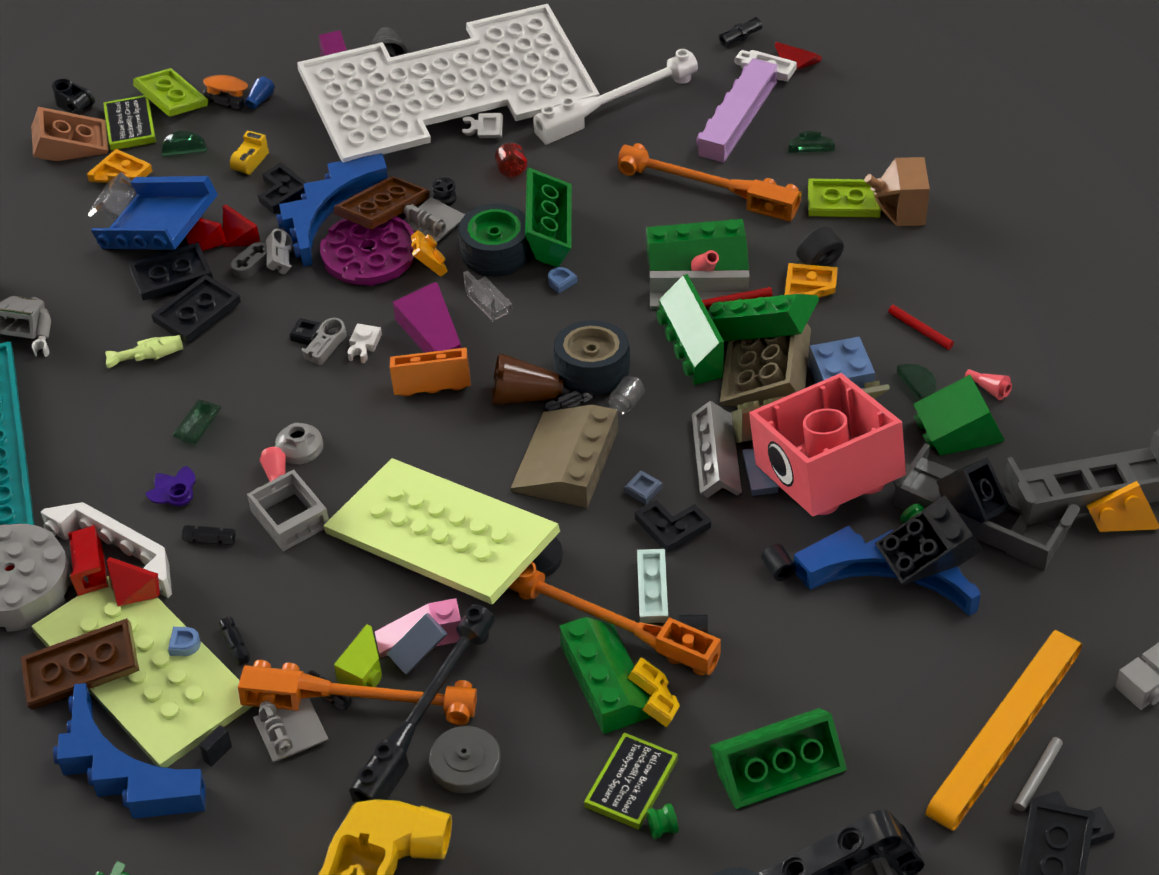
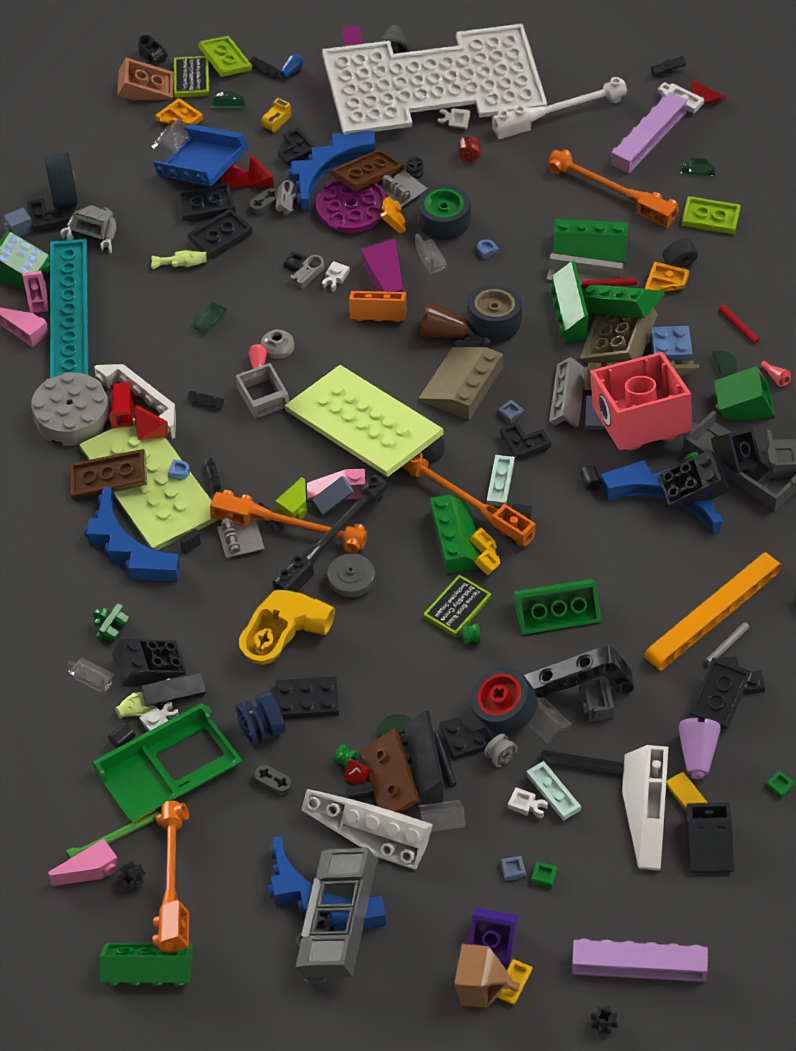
camera: 10 degrees right, 5 degrees up
(171, 489) = (186, 364): dark purple plate -> none
(225, 84) = (267, 56): orange dish -> none
(548, 217) = (485, 199): green slope -> none
(626, 394) = (513, 343): clear brick -> none
(705, 261) = (592, 252): coral cone -> none
(903, 191) = (752, 217): medium nougat piece -> none

